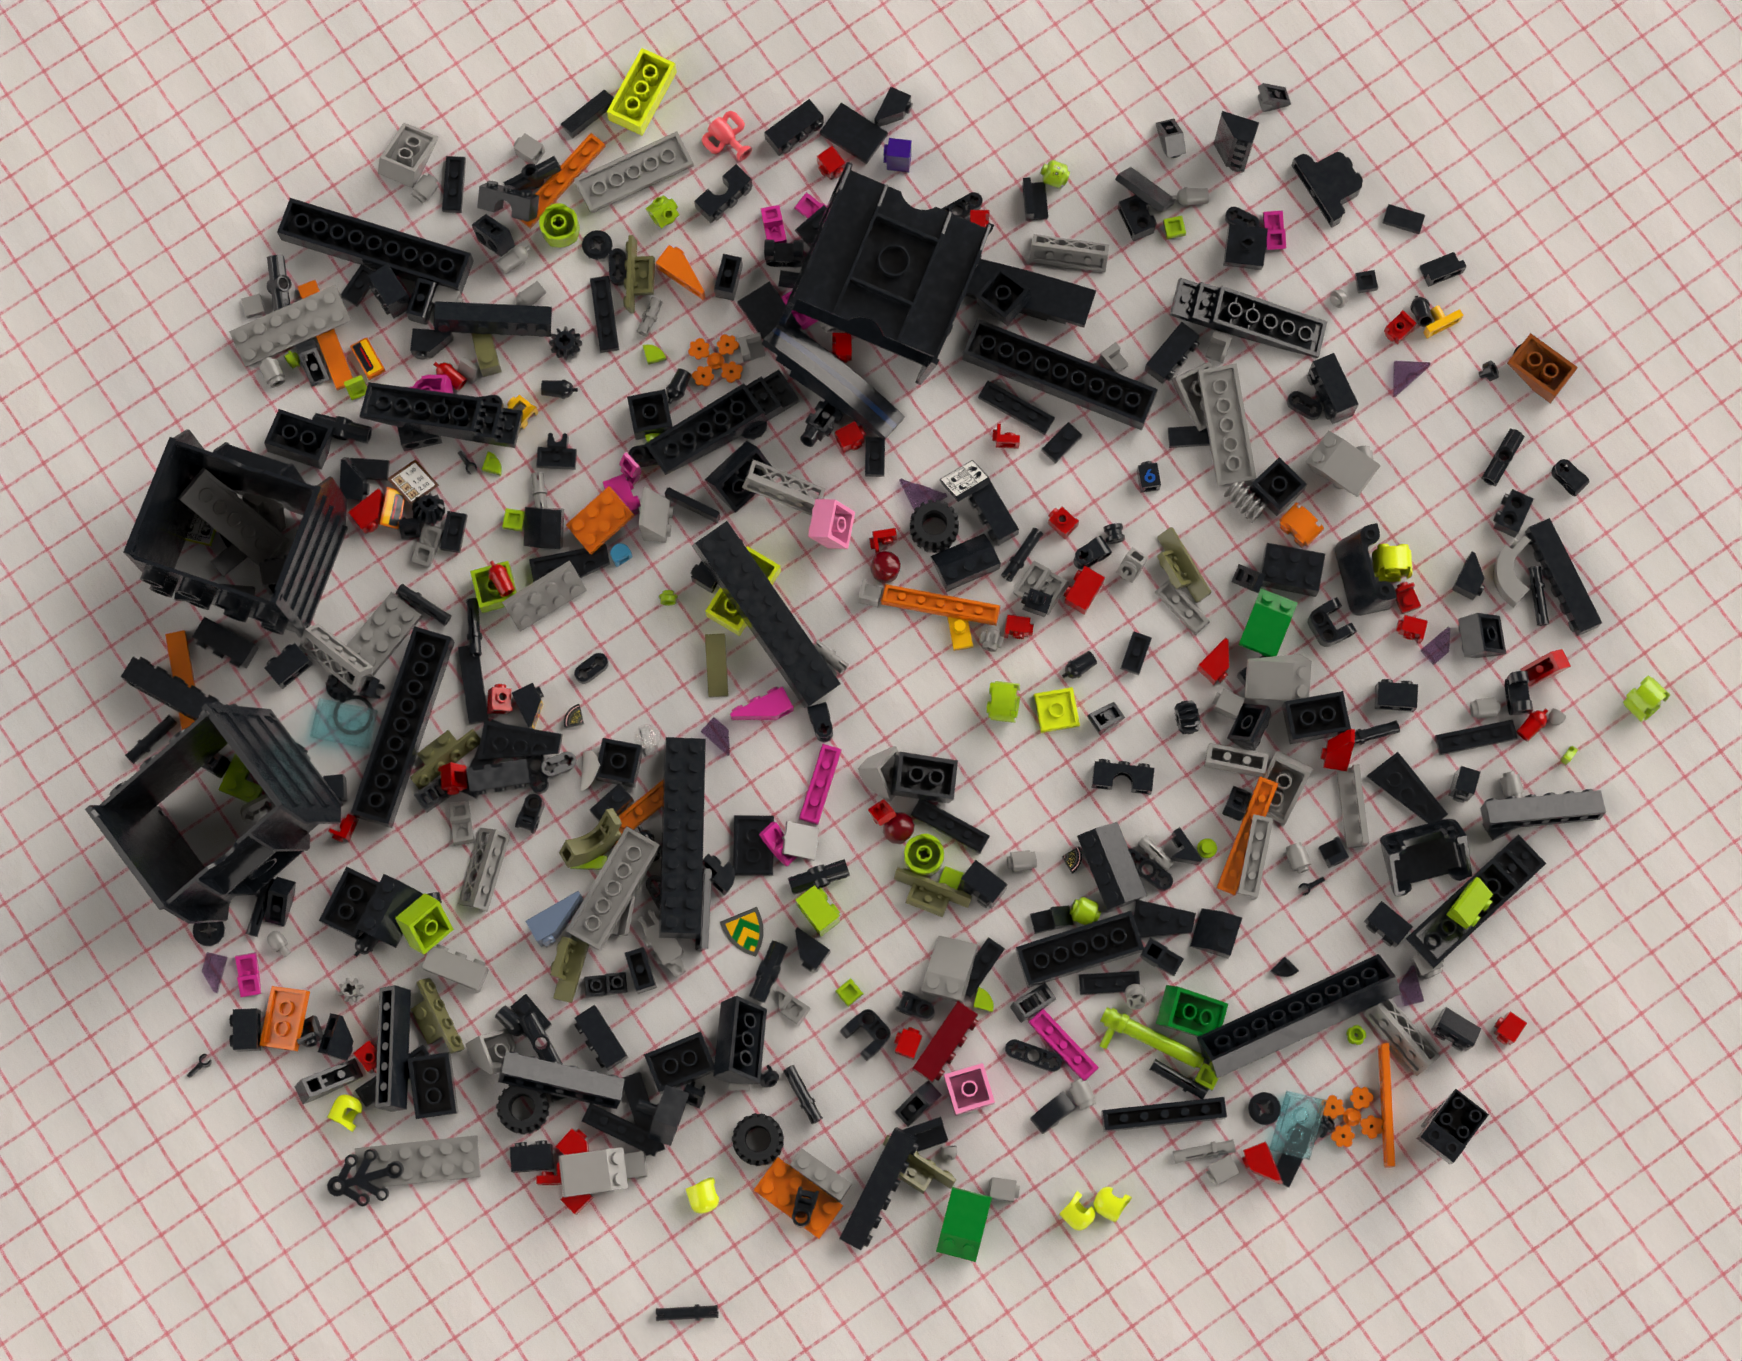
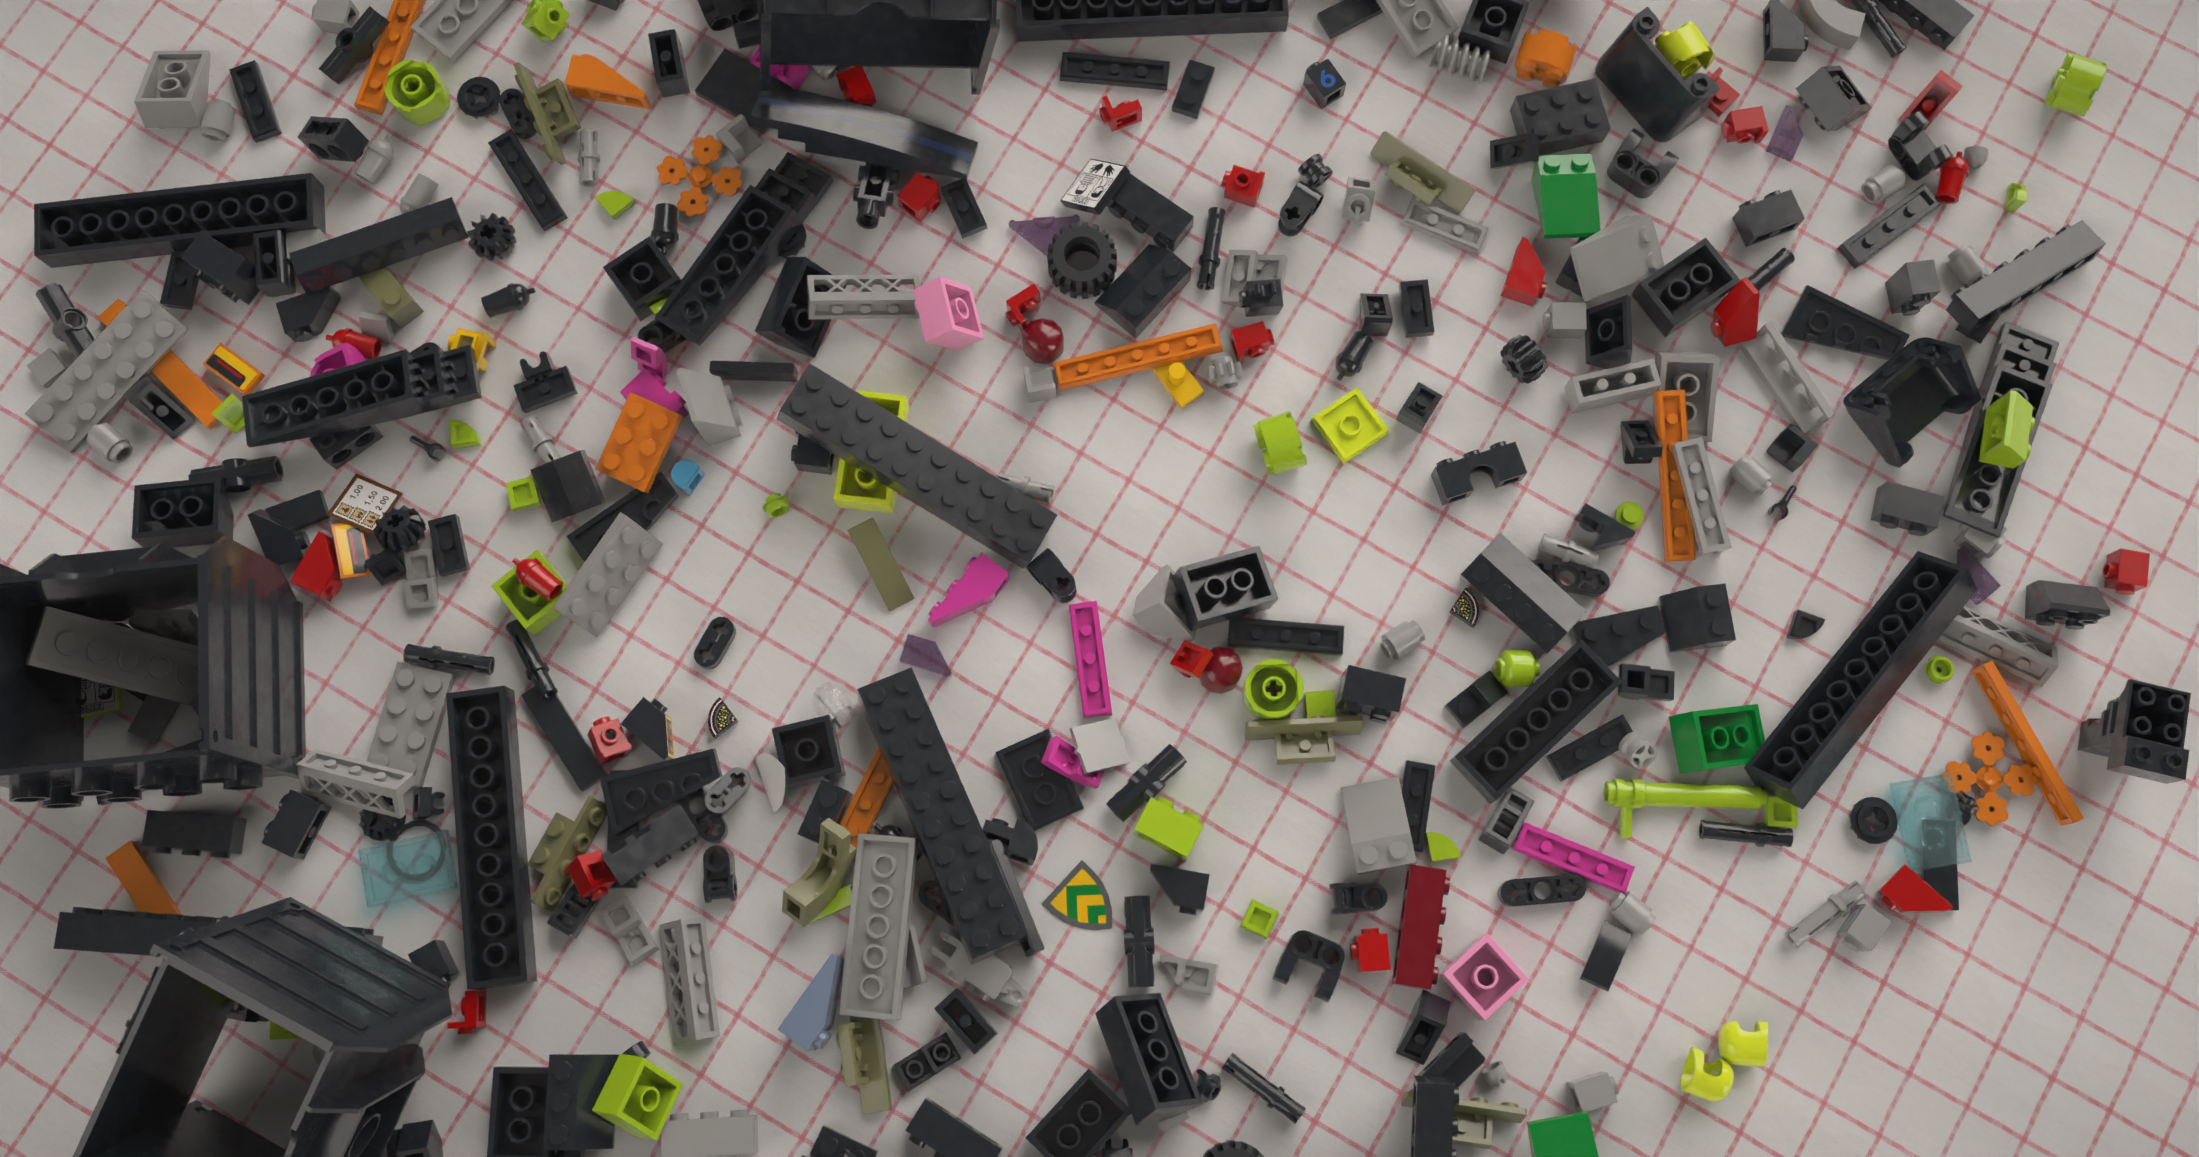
camera: 25 degrees left, 0 degrees up
(292, 359) = (131, 414): lime plate -> none
(522, 202) = (354, 81): black arch -> none
(1084, 589) = (1312, 257): red brick -> none
(1107, 644) = (1375, 314): none -> black slope
(1163, 1114) = (1753, 890): black brick -> none

